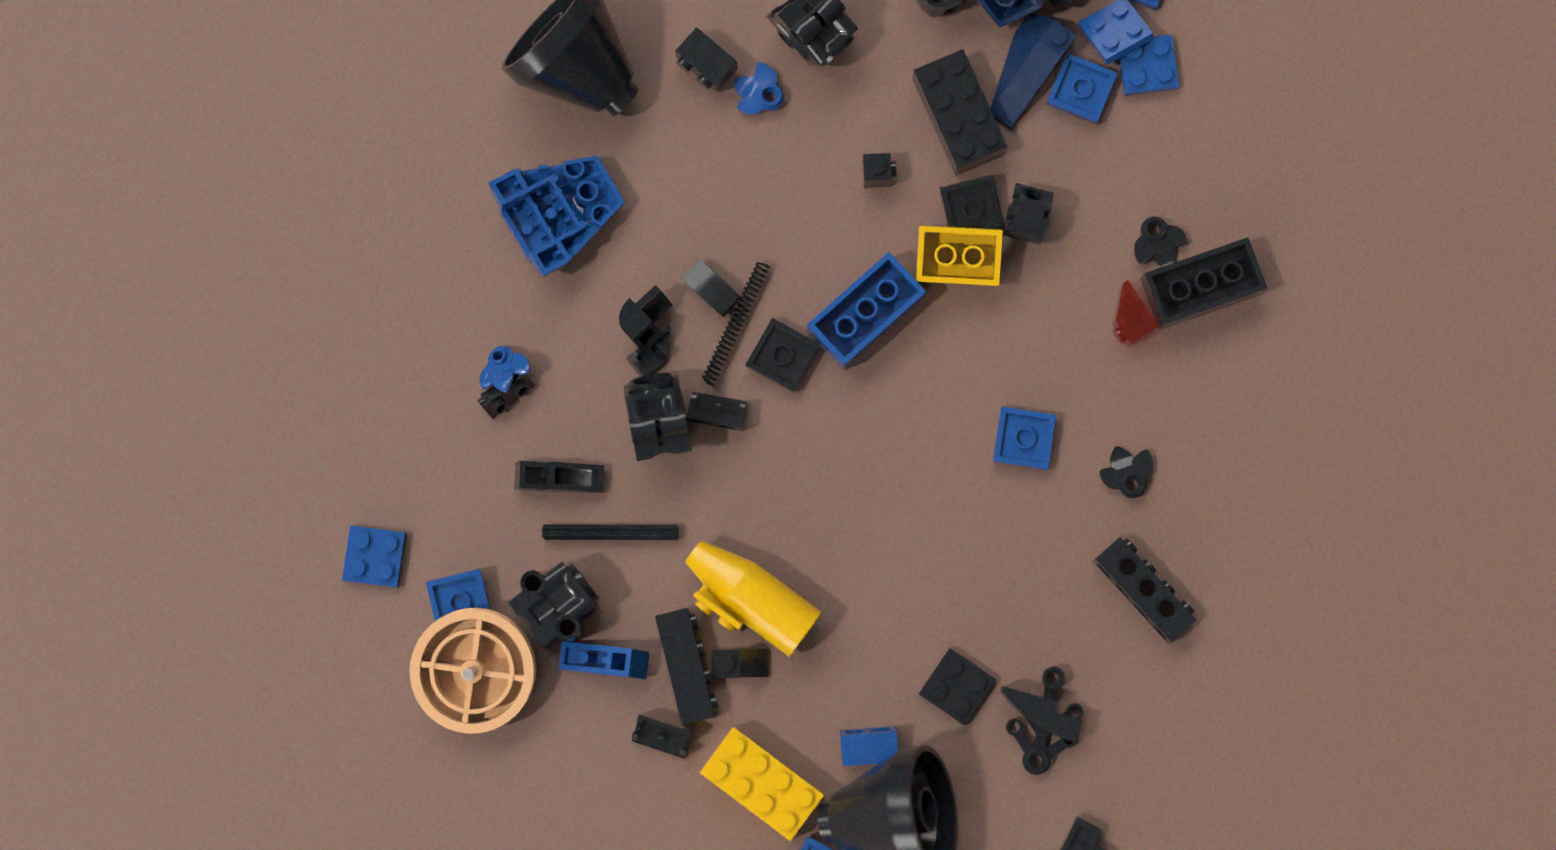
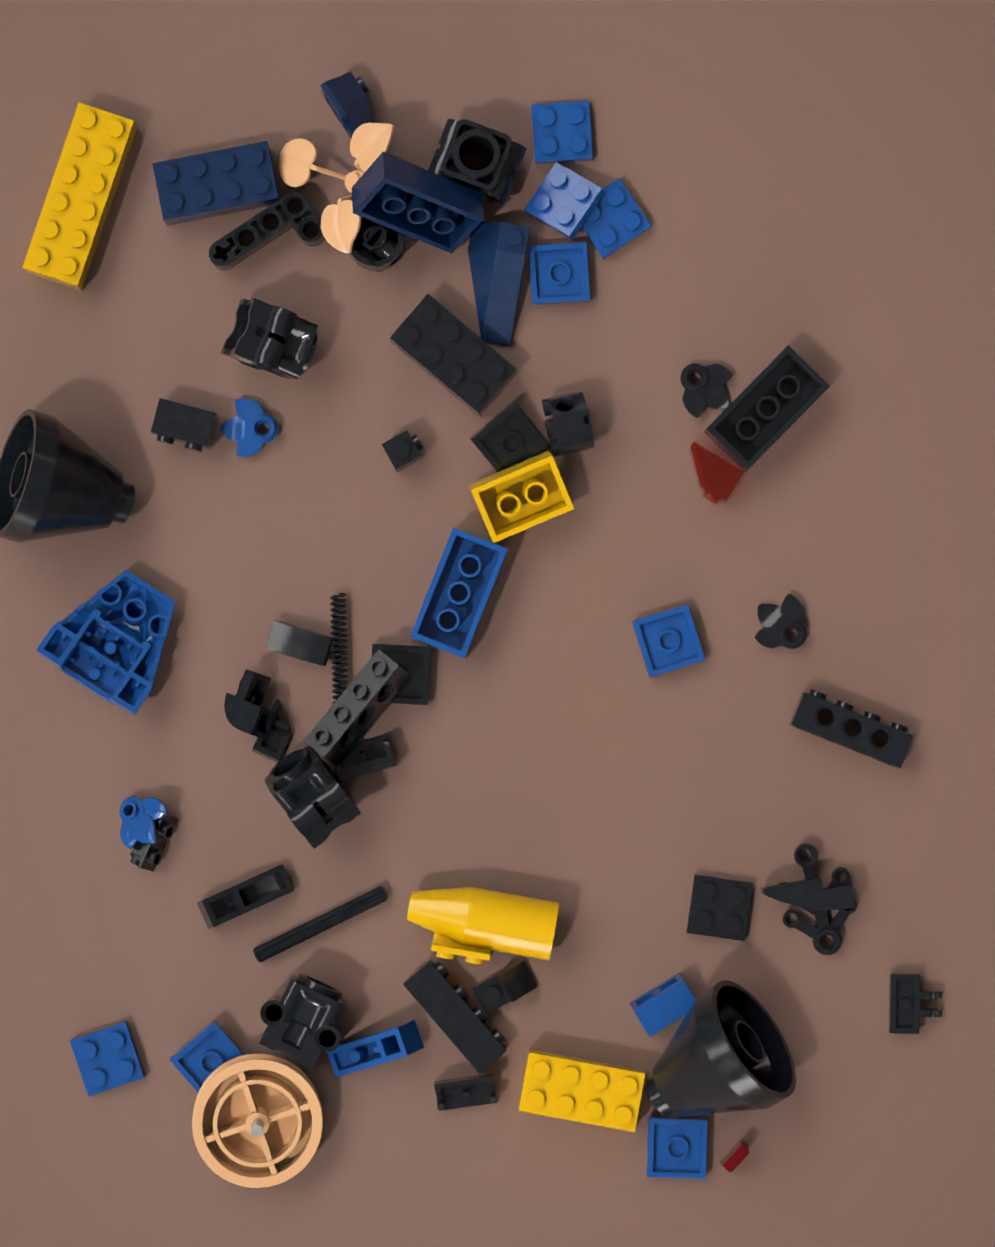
camera: 30 degrees left, 5 degrees up
(733, 362) = (357, 708): none -> black brick

